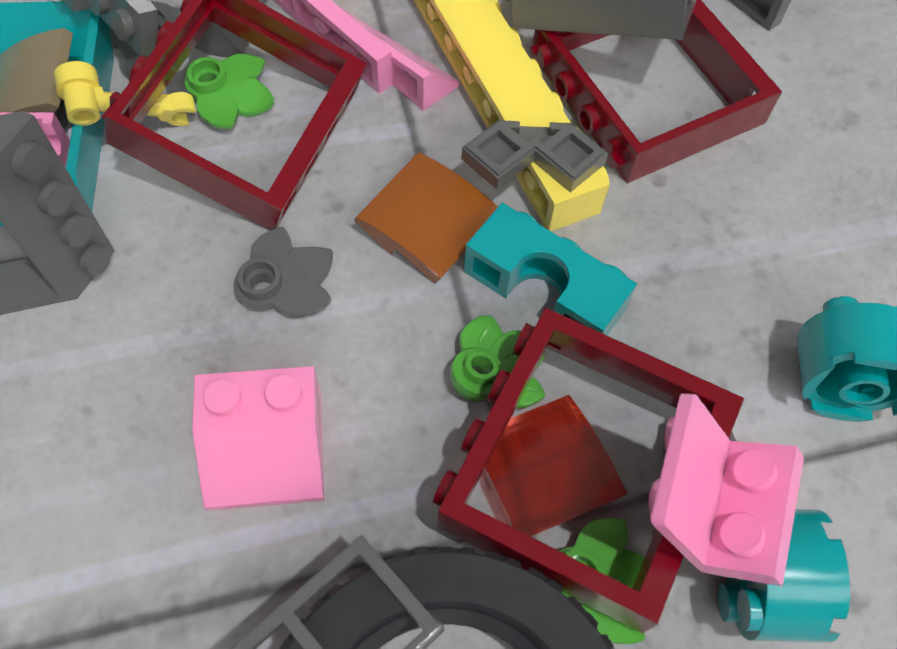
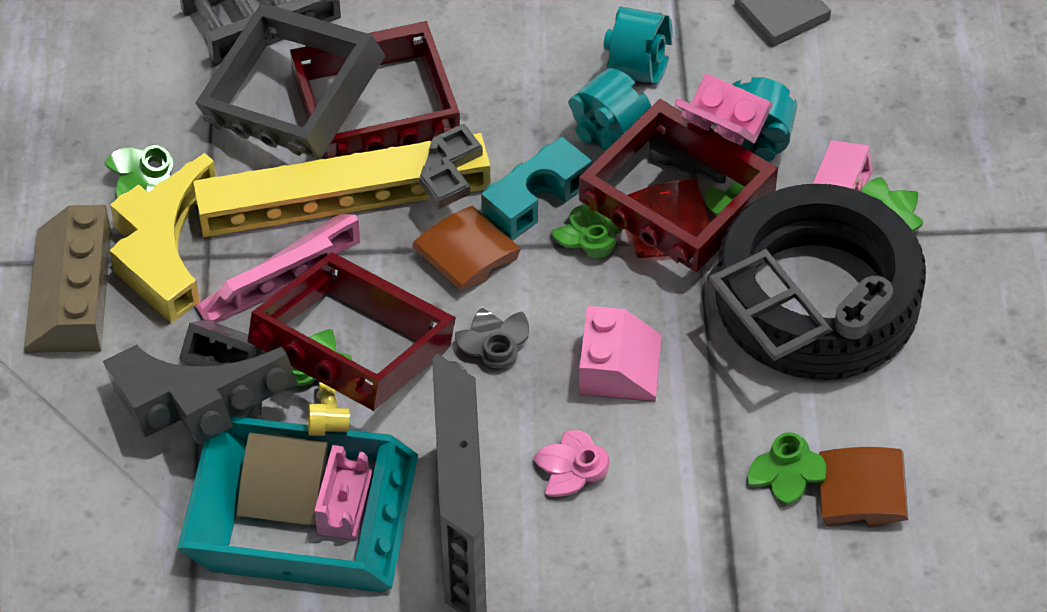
camera: 75 degrees left, 10 degrees down
(71, 410) = (569, 463): none -> bright pink plate
(714, 333) = (607, 108): none -> teal brick

